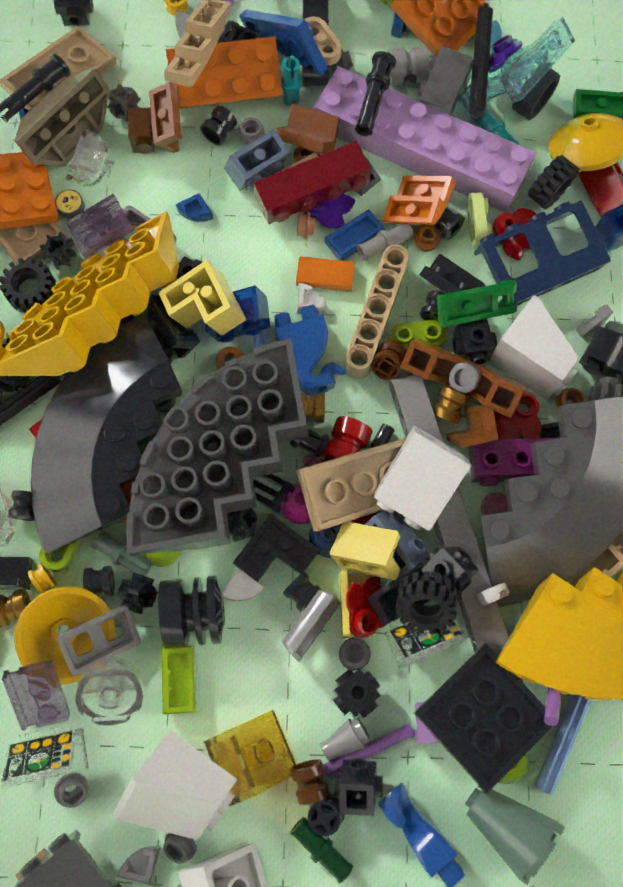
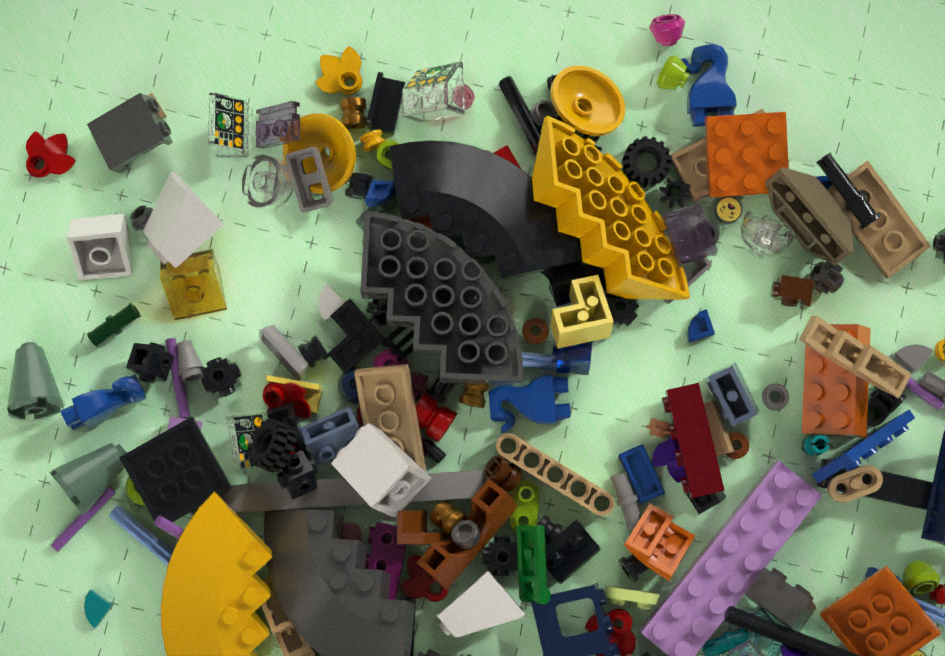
camera: 110 degrees right, 10 degrees up
(22, 506) = (437, 131): black wheel -> none
(71, 798) = (196, 142): light grey plate -> none
(102, 552) = (380, 192): none -> blue tile
(137, 593) = (342, 215): black gear -> none
(140, 865) = (136, 186): light grey tile -> none
(165, 117) = (793, 312): dark orange panel -> none
(178, 680) = (266, 238): lime plate -> none
(190, 612) = (314, 255): black wheel -> none
(218, 125) = (790, 370): black wheel -> none
(308, 296) = (582, 416): white tile -> none
(310, 129) = (757, 451): dark orange panel -> none
(310, 782) = (164, 326): reddish brown wheel -> none
(320, 819) = (131, 330): black wheel -> none
(325, 273) = (606, 436): orange tile -> none
(345, 60) = (839, 509): dark grey plate -> none
(354, 654) = (253, 384): dark grey tile -> none
(366, 550) = (331, 409): light yellow panel -> none
(377, 83) = (785, 525): black pin -> none
(410, 66) = (818, 570): light grey wheel -> none
(425, 244) = (614, 542): dark orange plate -> none
(492, 594) = (269, 503): white tile -> none
(569, 393) = (421, 632): dark orange plate -> none
(572, 833) = (81, 520): none -> medium lavender bar

